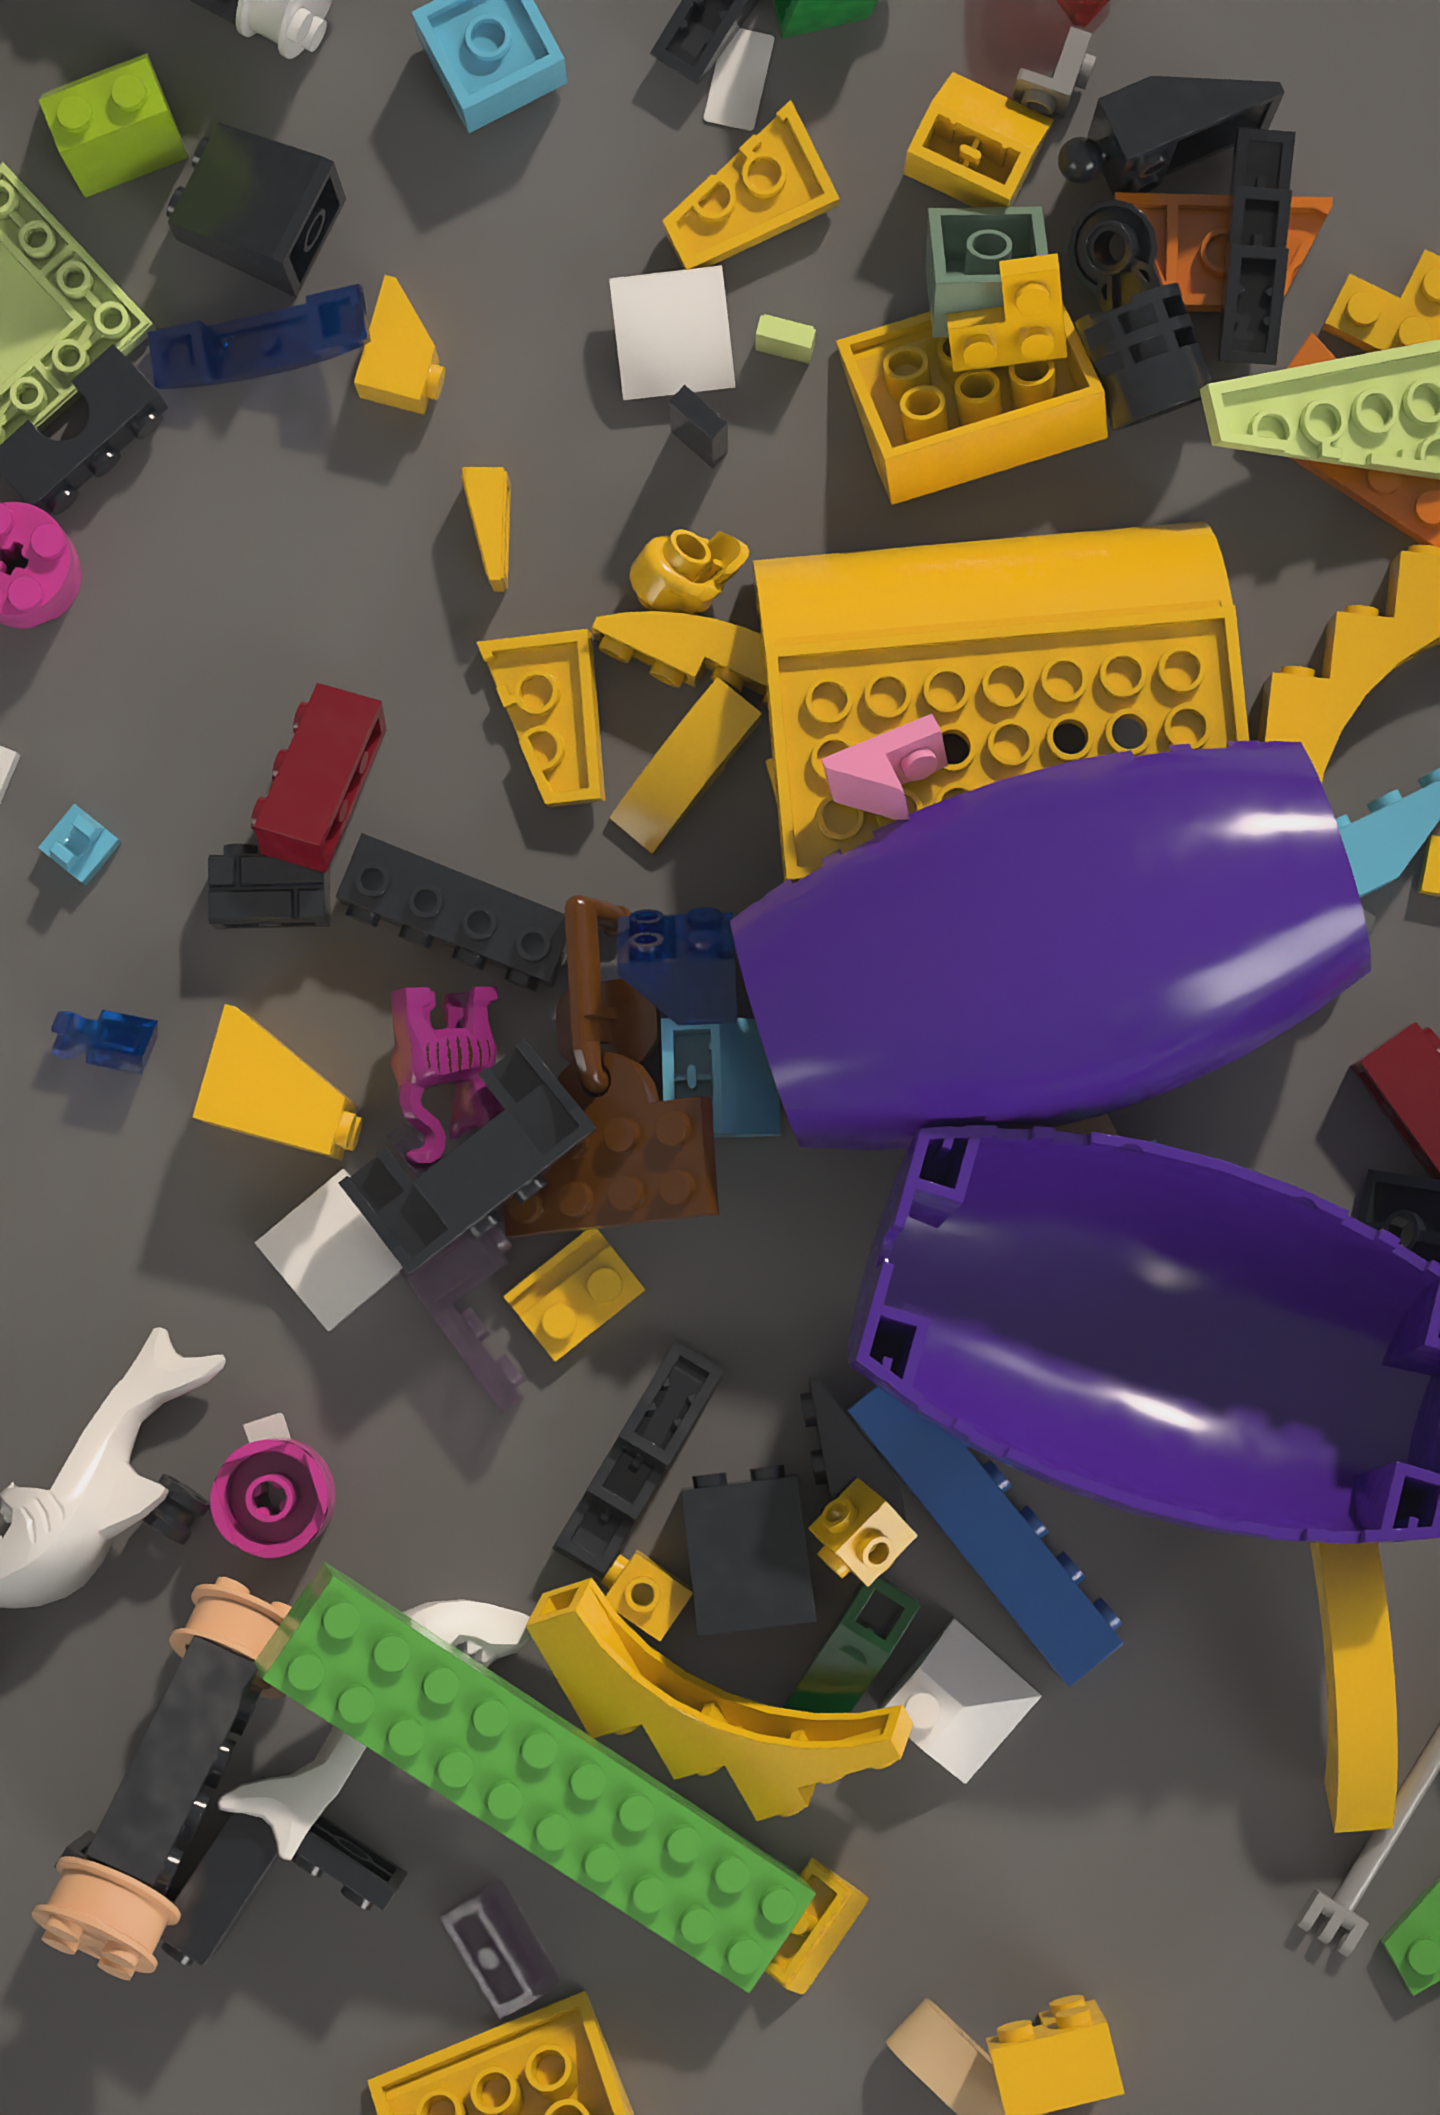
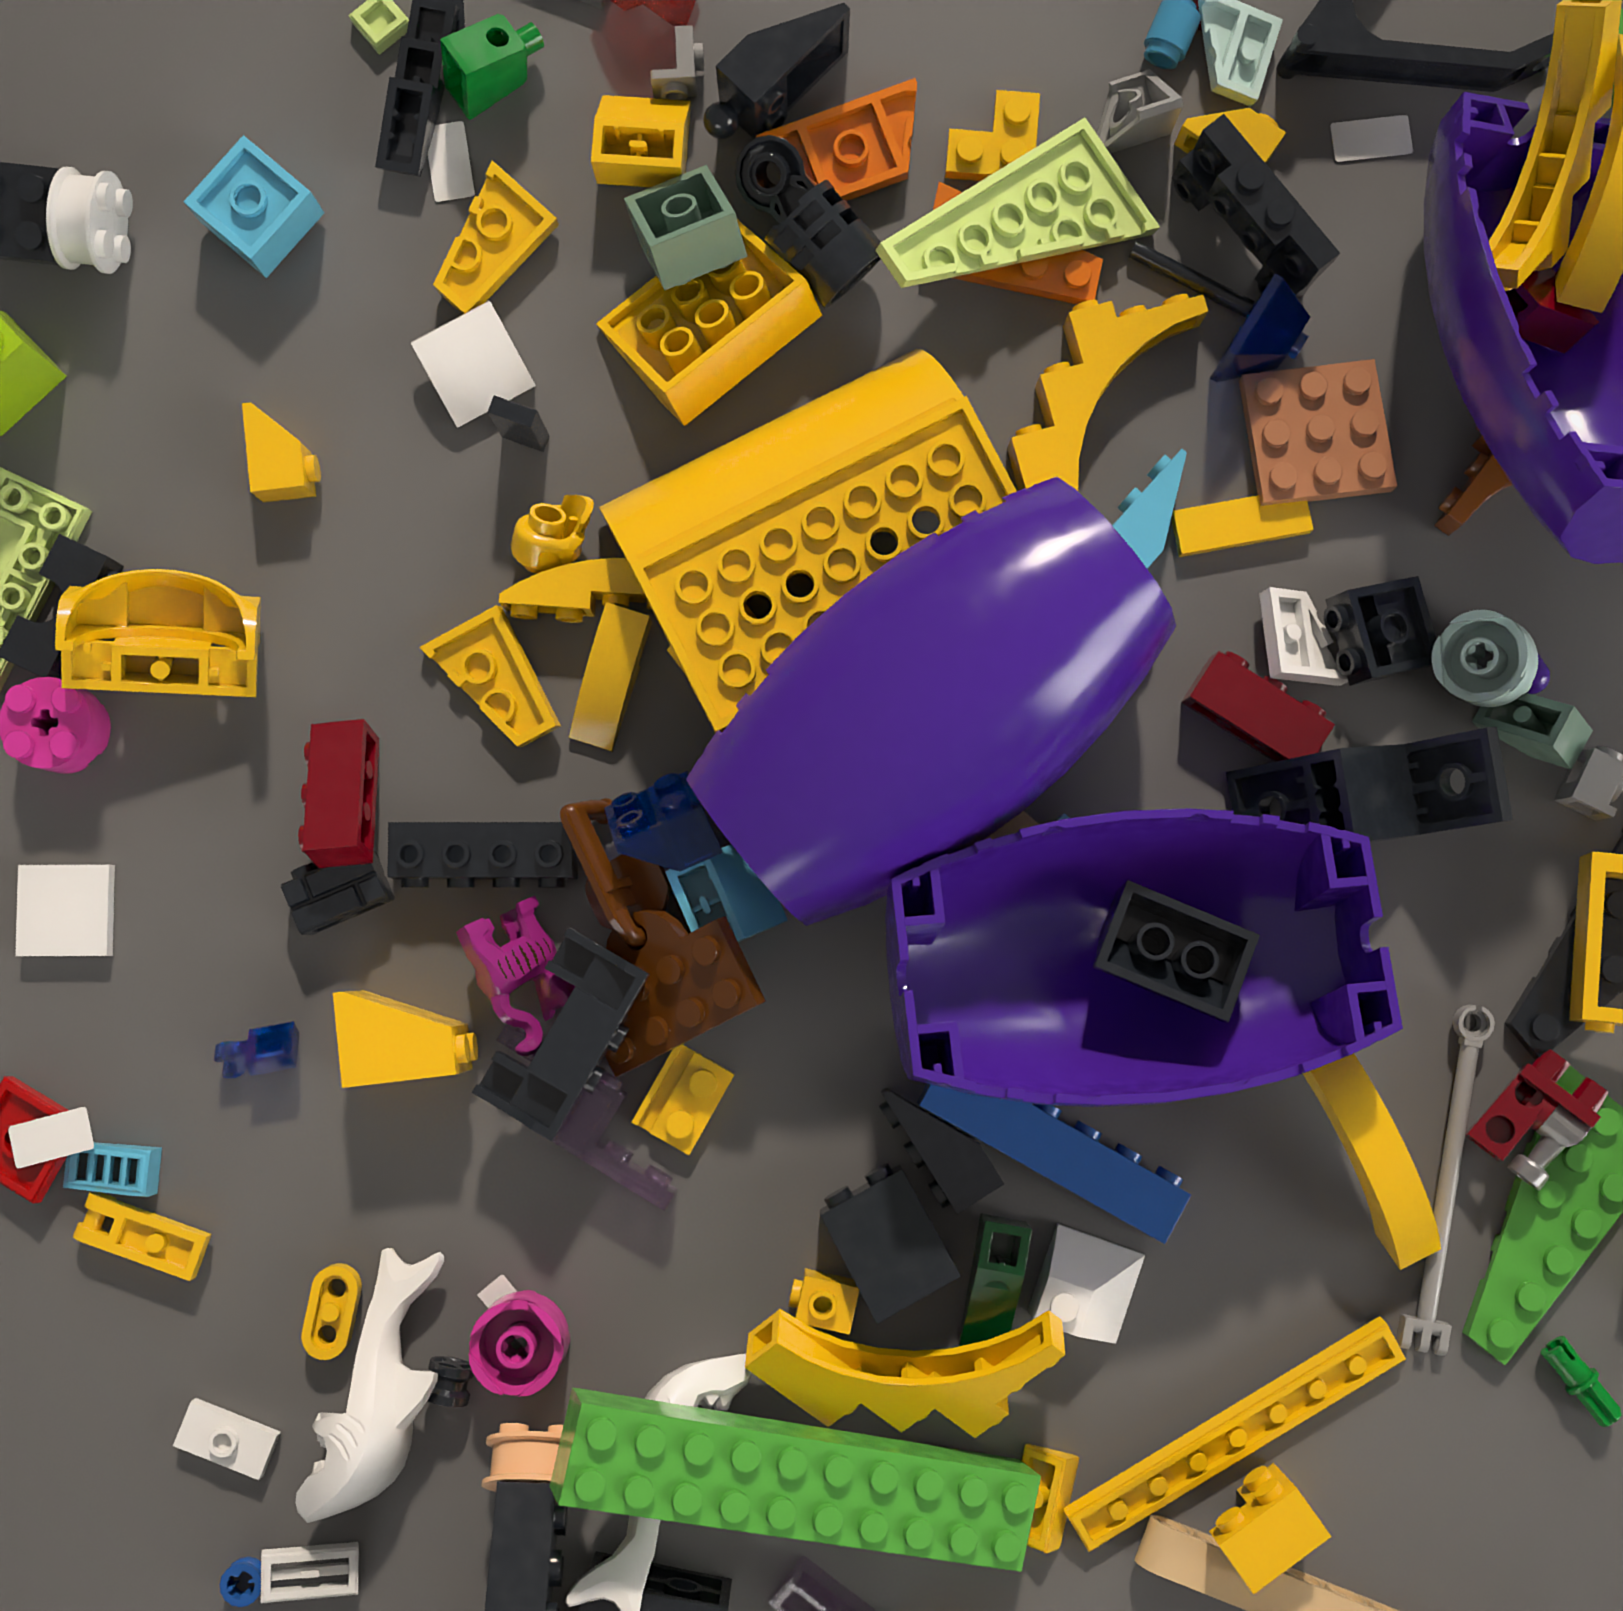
camera: 25 degrees left, 0 degrees up
(71, 1372) = (331, 1309): none -> yellow plate
(80, 844) = (184, 914): medium azure tile -> none
(186, 510) = (161, 633): none -> yellow piece
(257, 206) = (129, 390): black slope -> none
(261, 343) = (172, 492): clear blue slope -> none
(329, 1254) = (488, 1145): white tile -> none
(489, 505) = (389, 543): yellow slope -> none
(638, 1459) = (779, 1202): black slope -> none
(785, 338) = (557, 335): yellowish green tile -> none
(861, 1533) = (966, 1196): yellow brick -> none
(874, 770) = (749, 623): bright pink slope -> none
(1023, 329) = (727, 259): yellow plate -> none
(1063, 1944) = (1234, 1433): none -> yellow tile
(1218, 1348) = (1175, 950): none -> black slope
(1256, 246) = (874, 132): black slope -> none

